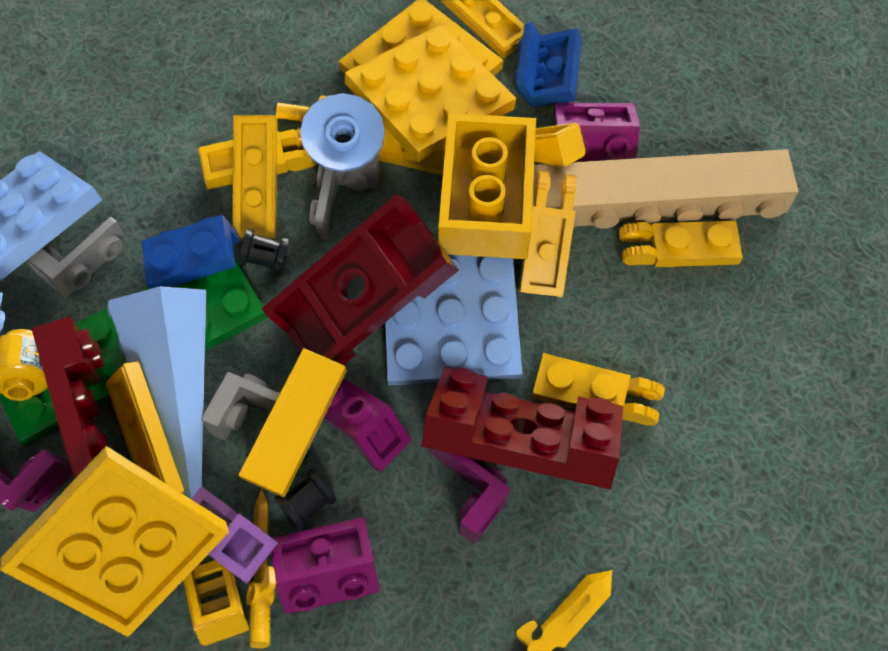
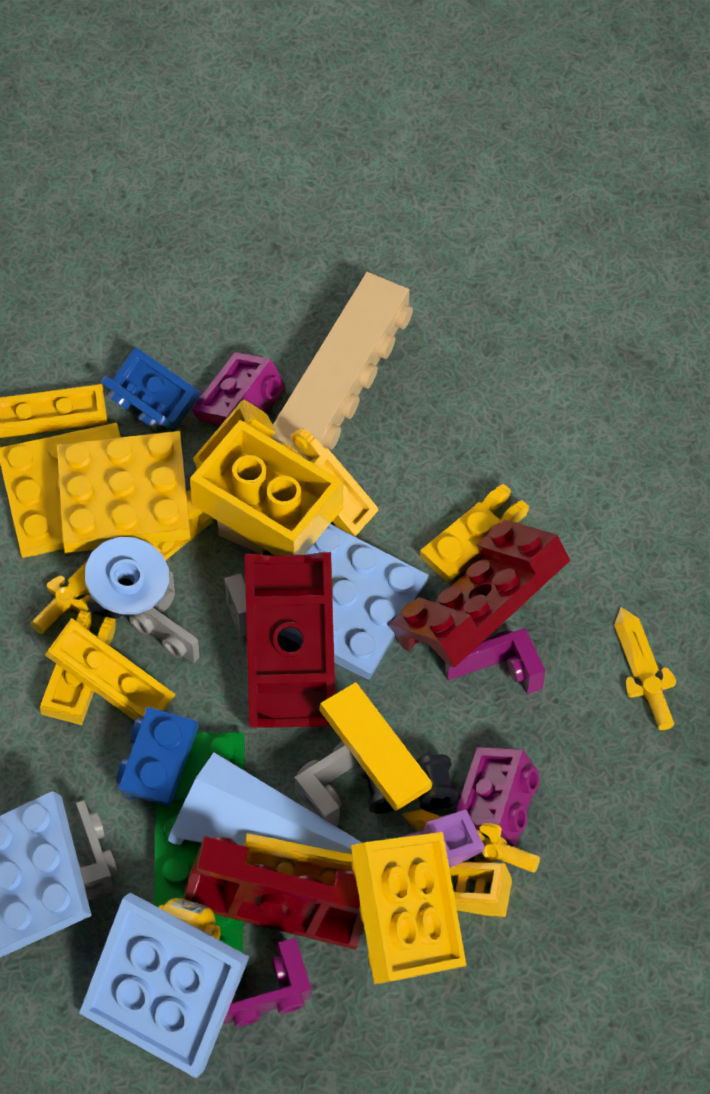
camera: 60 degrees left, 5 degrees down
(263, 251) = (186, 702): black bush -> none
(368, 424) = (405, 700): magenta bracket -> none
(682, 243) = (389, 397): yellow hinge -> none

